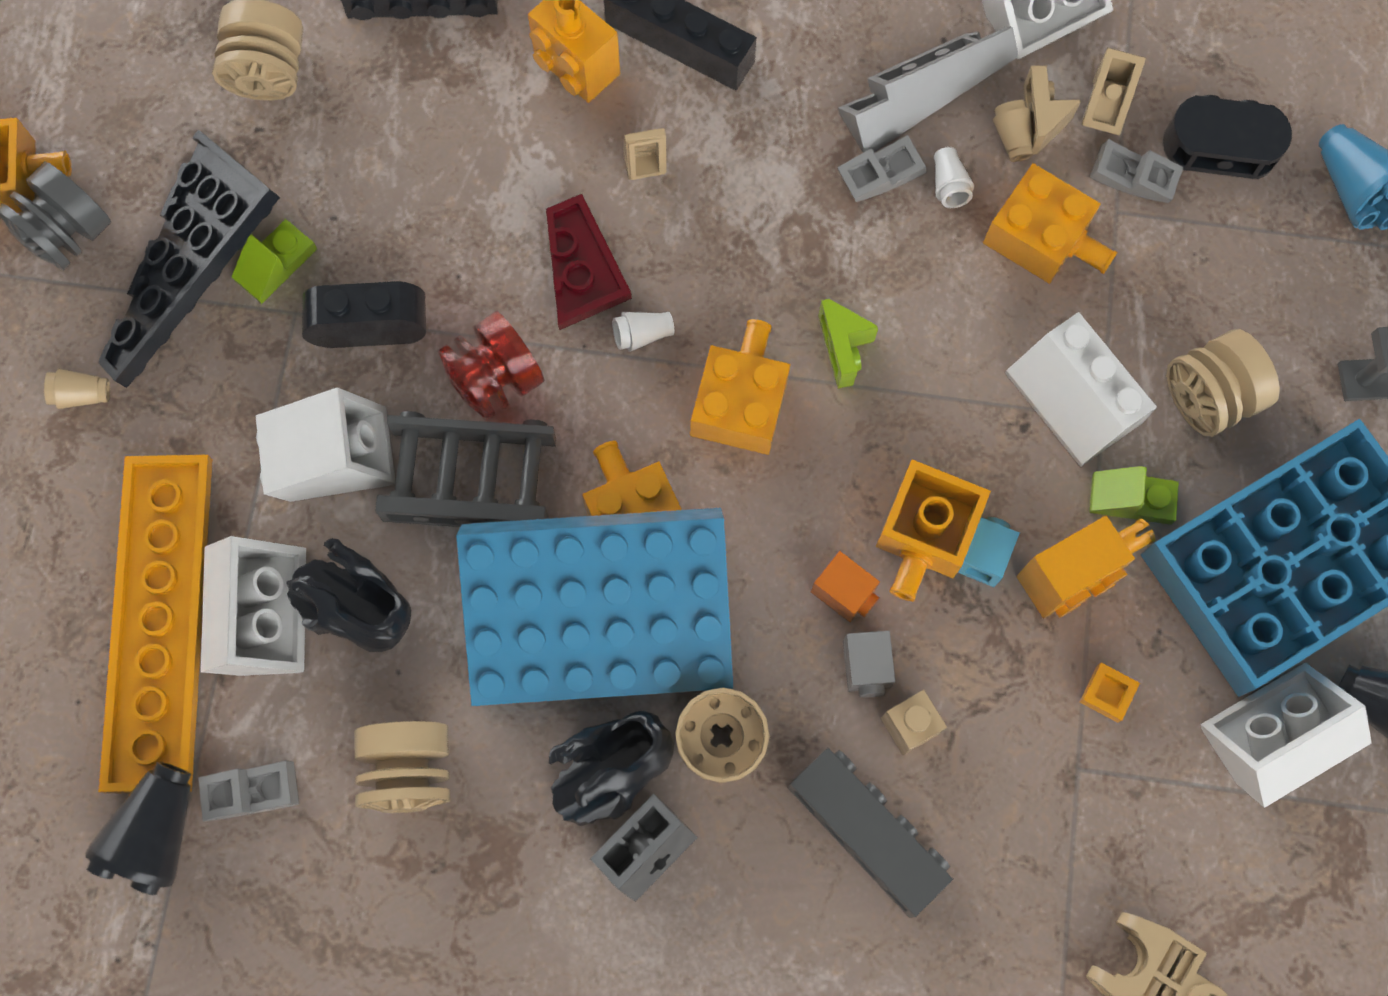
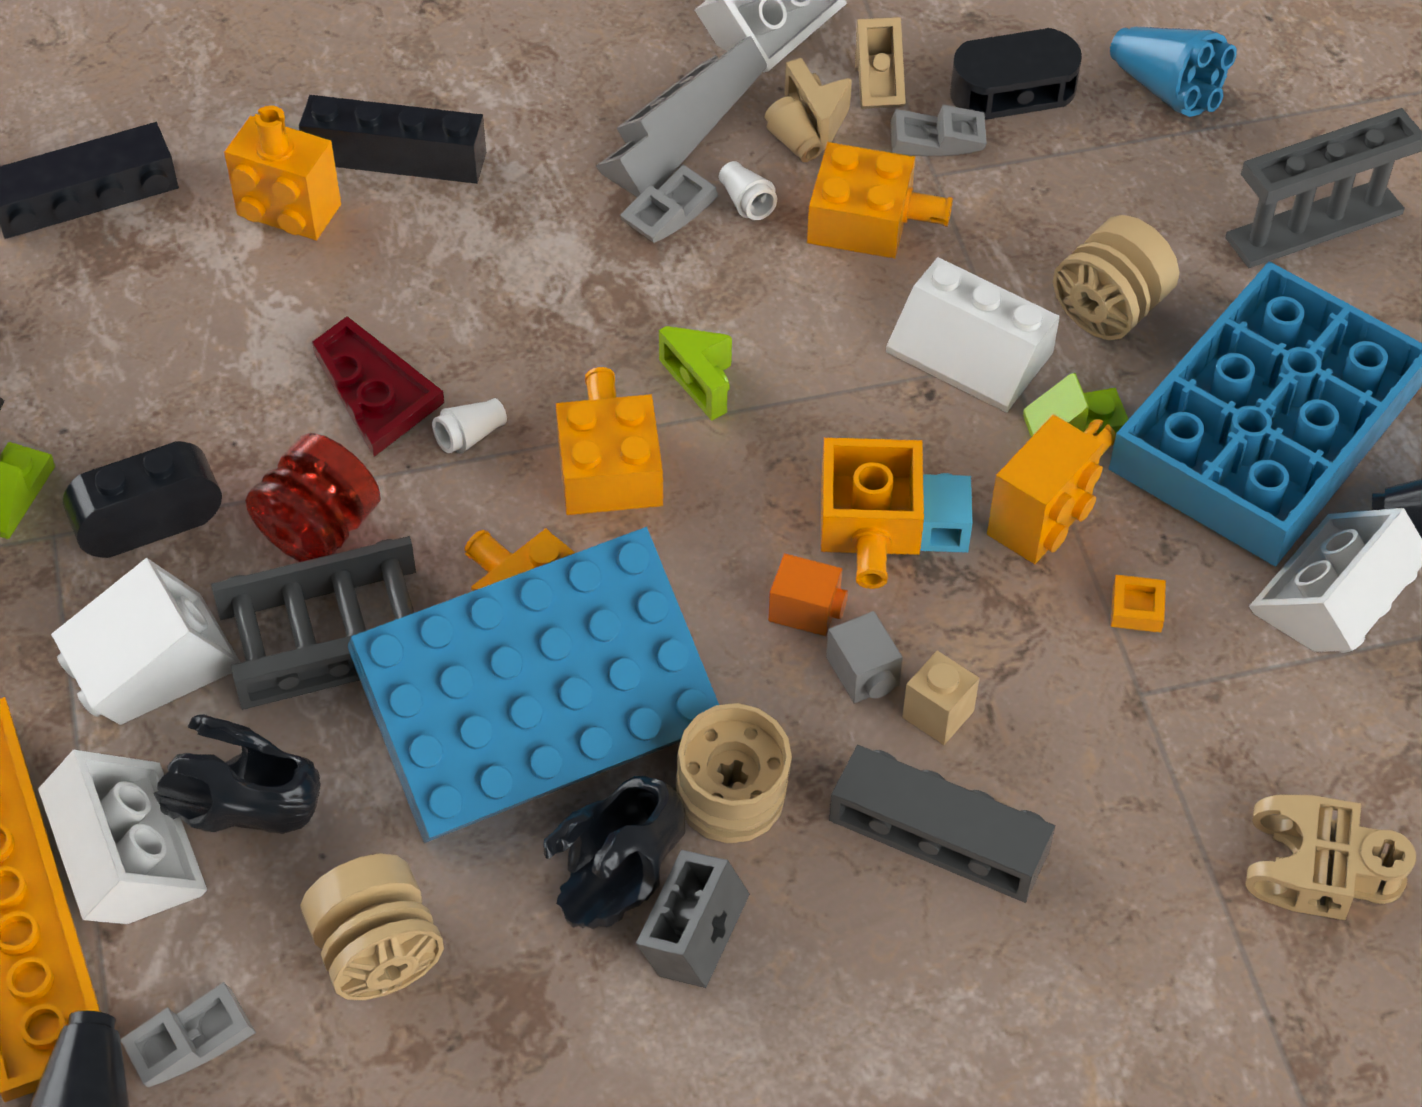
camera: 20 degrees left, 20 degrees down
(645, 153) = (403, 254): tan slope -> none

